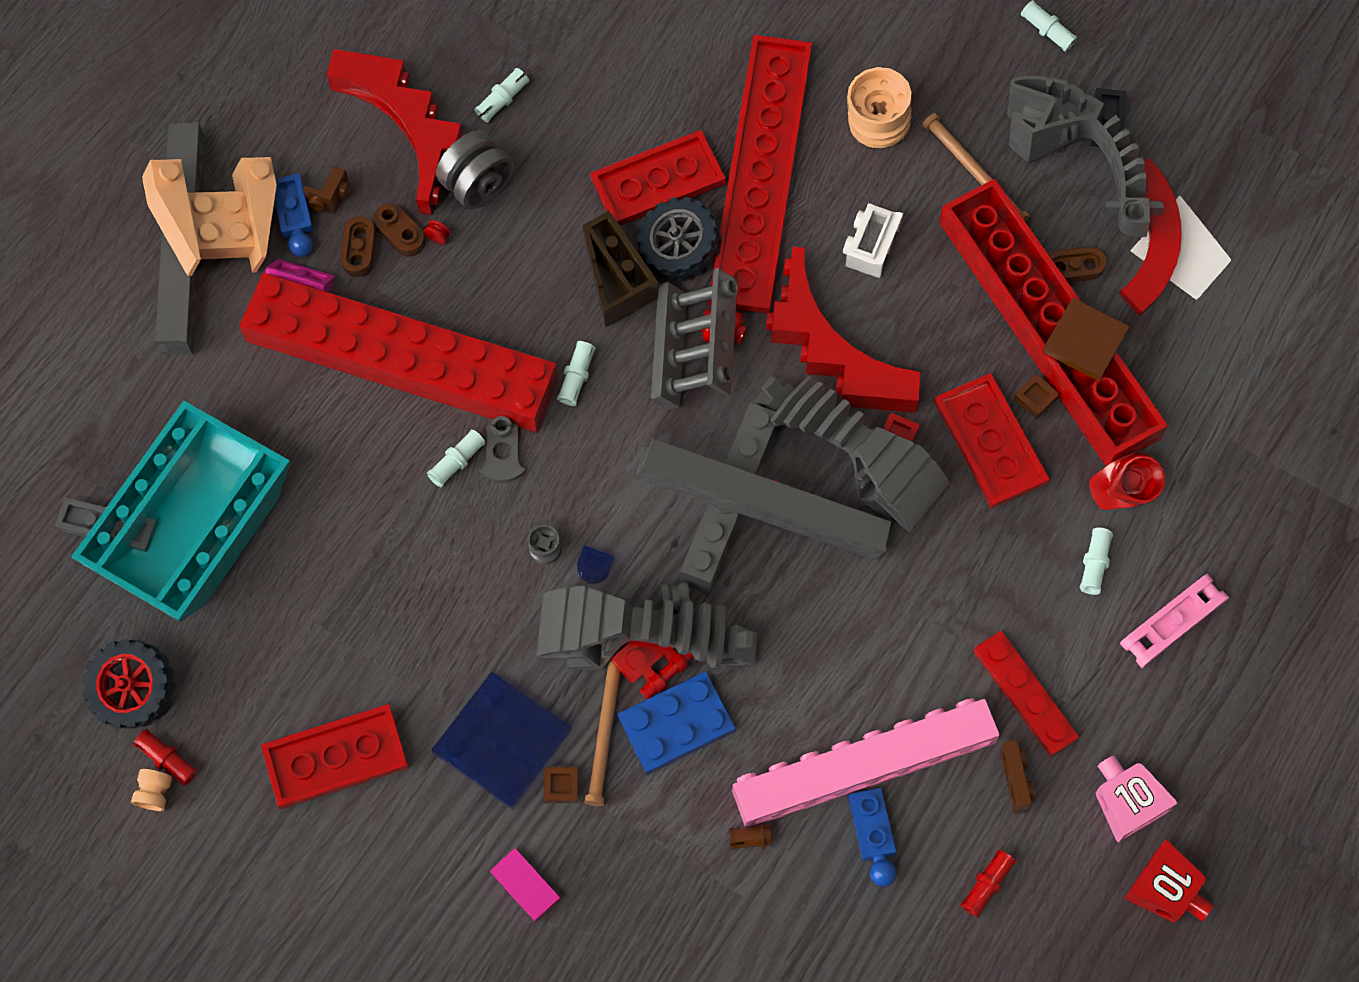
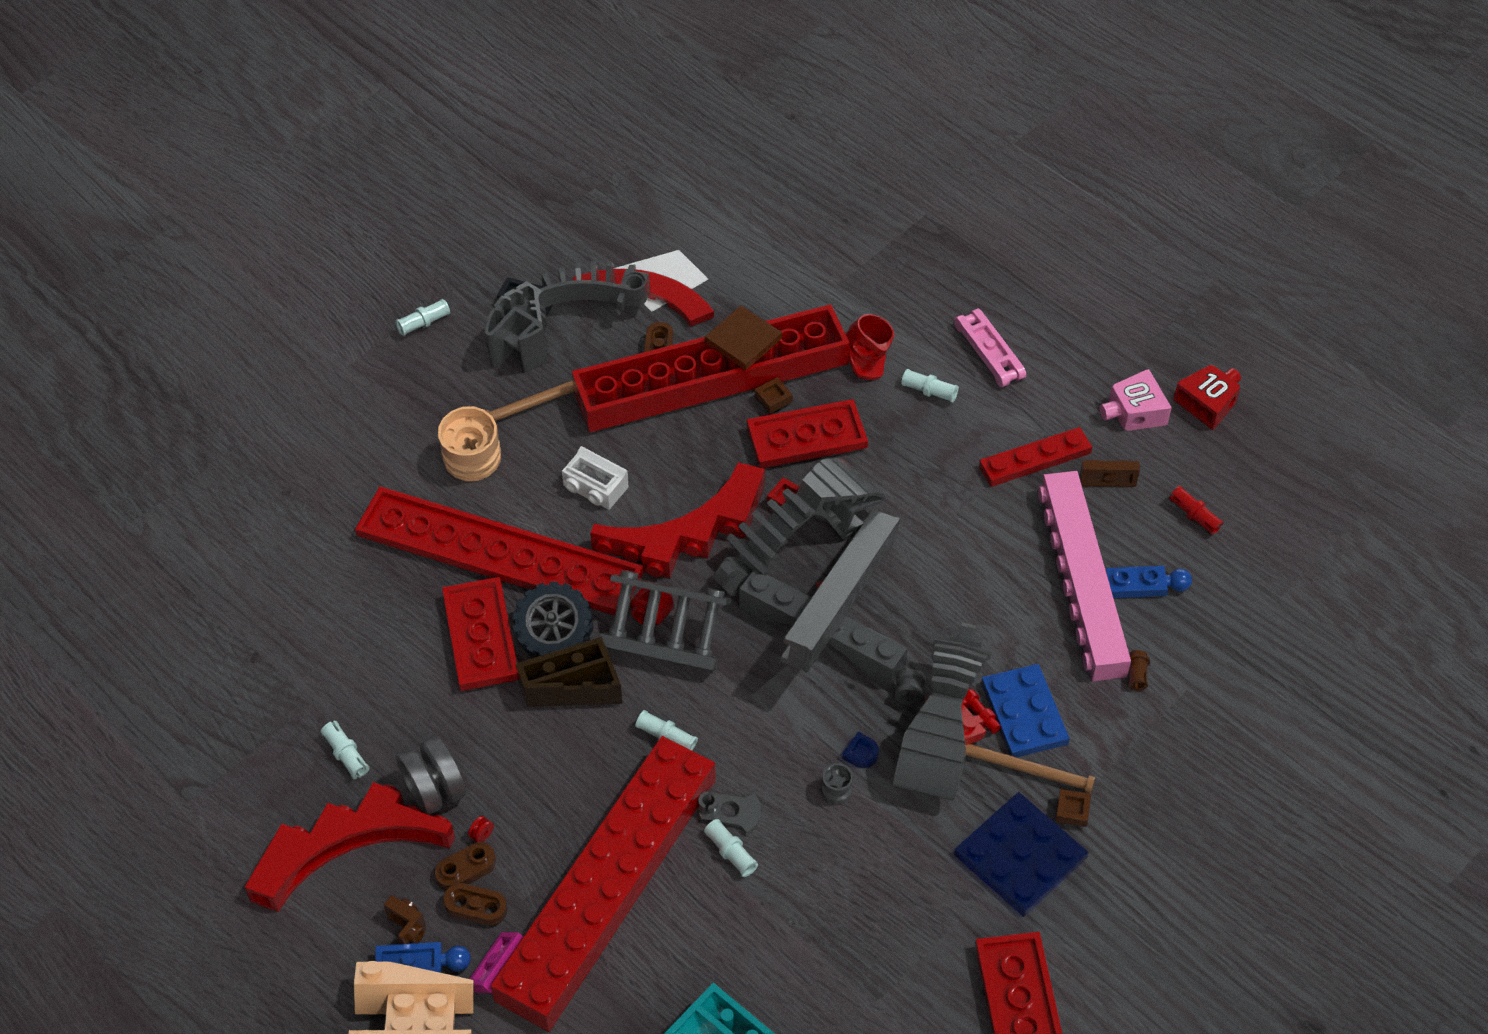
camera: 80 degrees left, 15 degrees down
(525, 885) = (1162, 854): dark pink tile -> none

